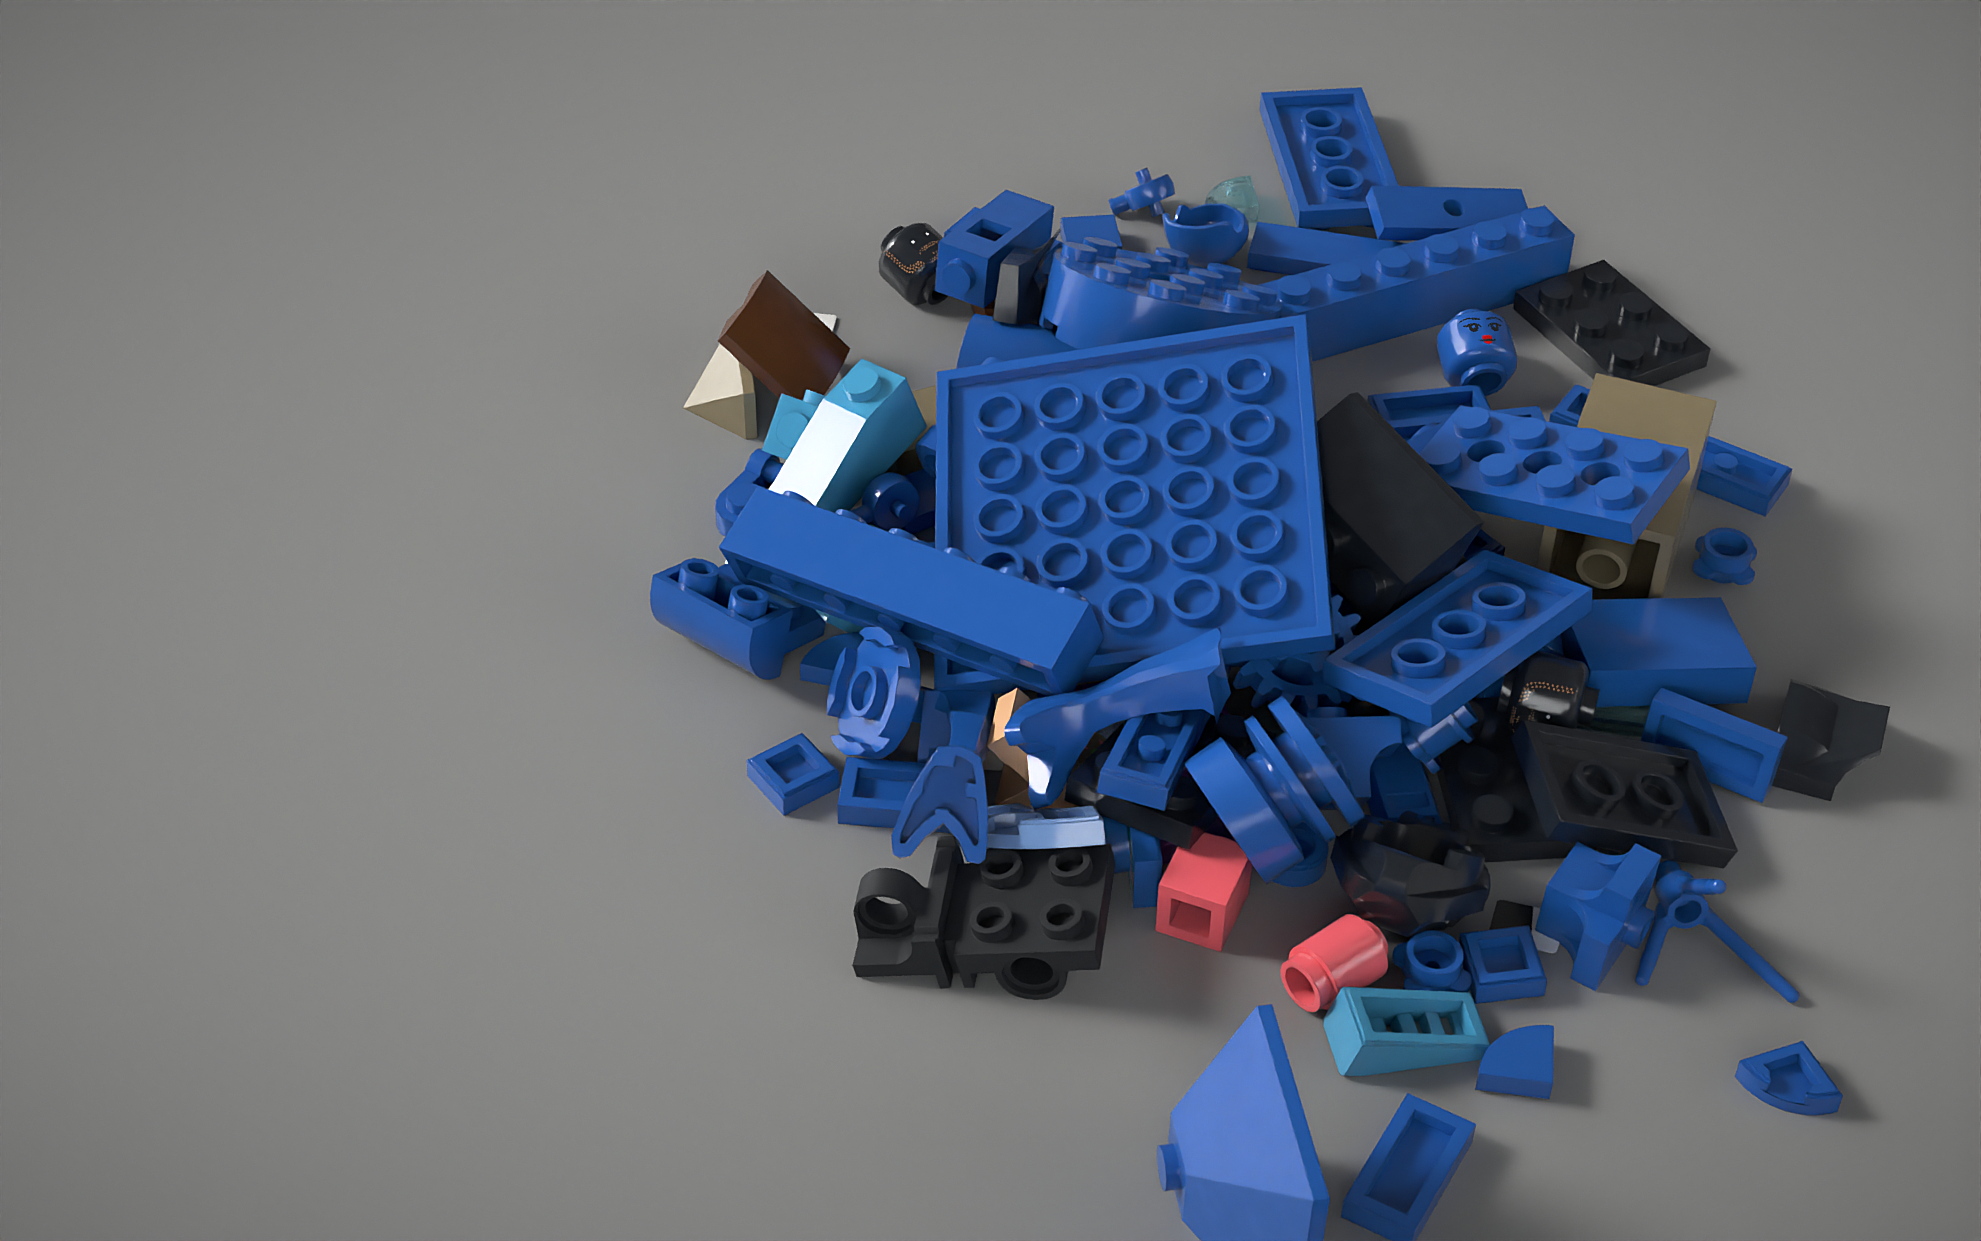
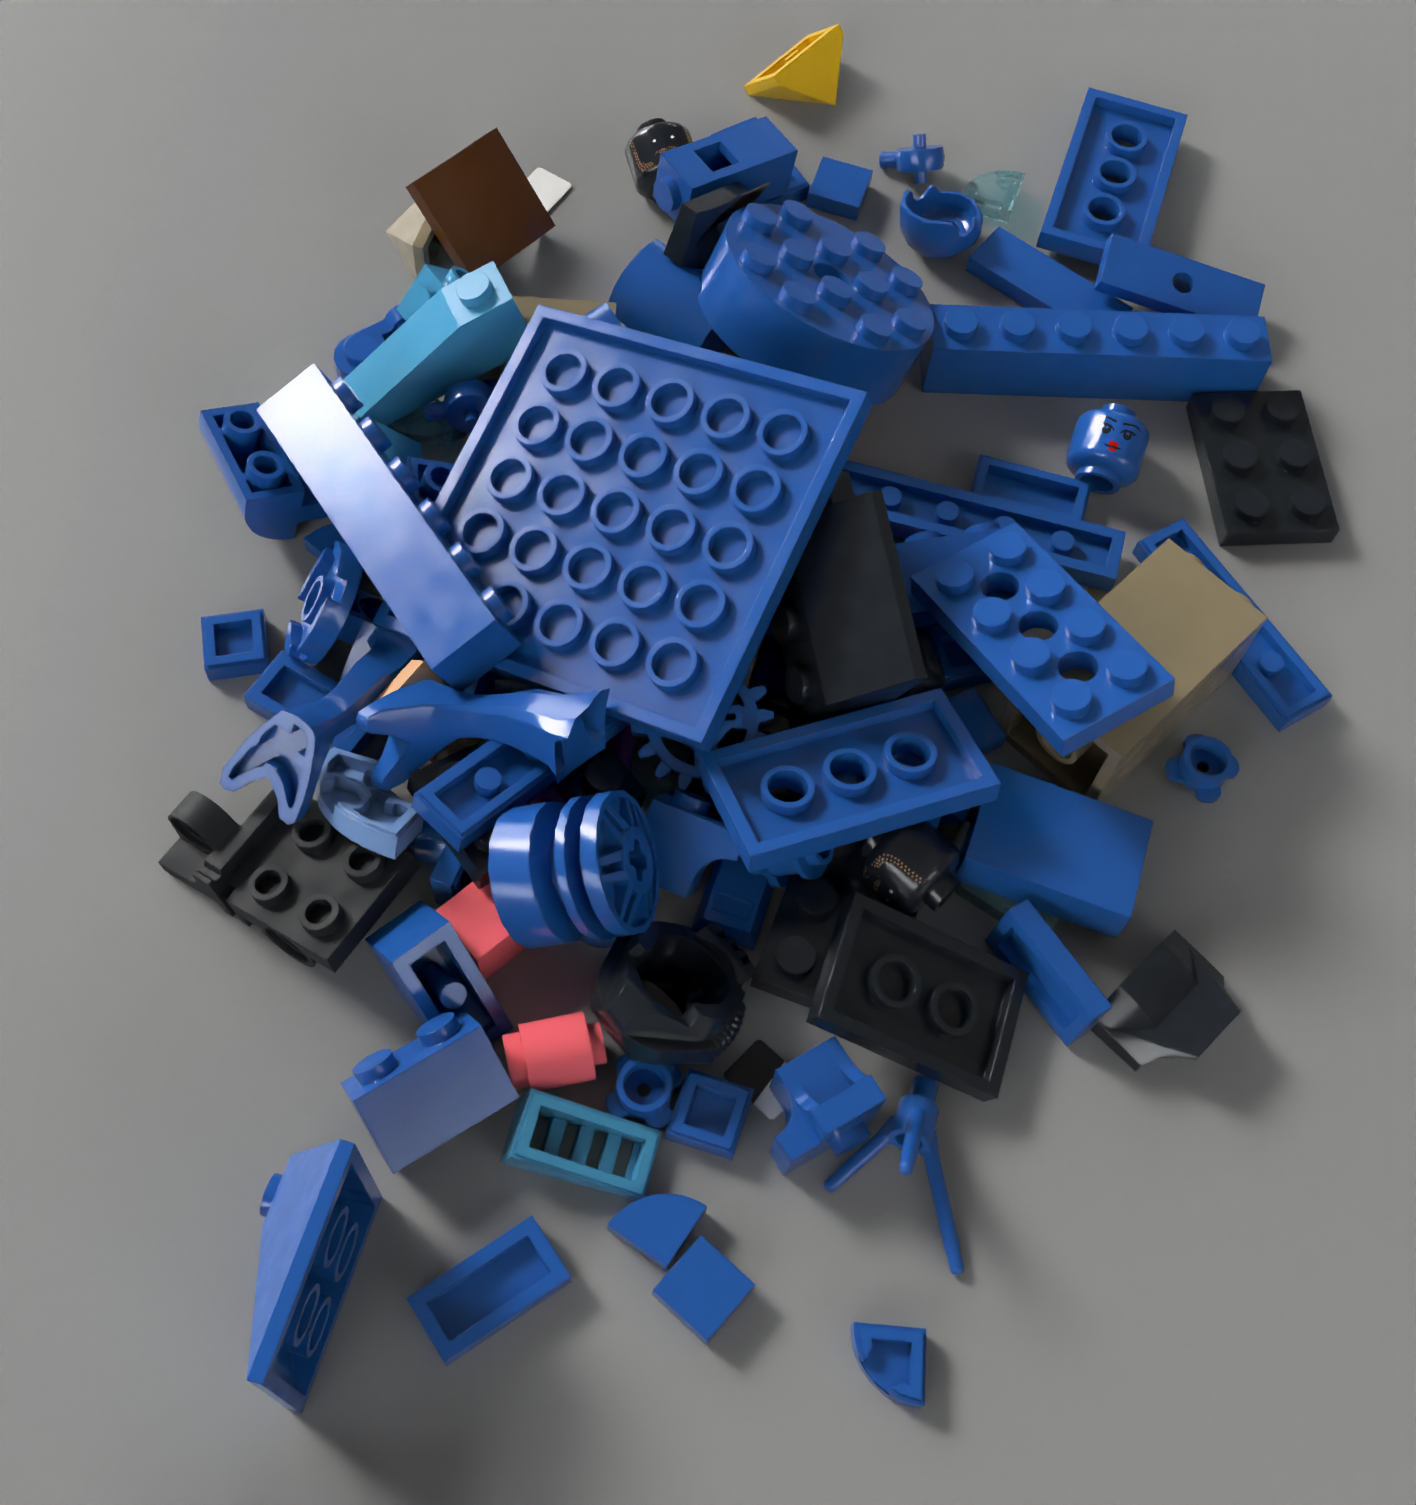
camera: 20 degrees right, 20 degrees up
(990, 159) = (805, 71): none -> yellow slope
(1191, 947) = (435, 969): none -> blue slope
(1246, 980) = (429, 1088): none -> blue brick
(1594, 1093) = (703, 1289): none -> blue tile

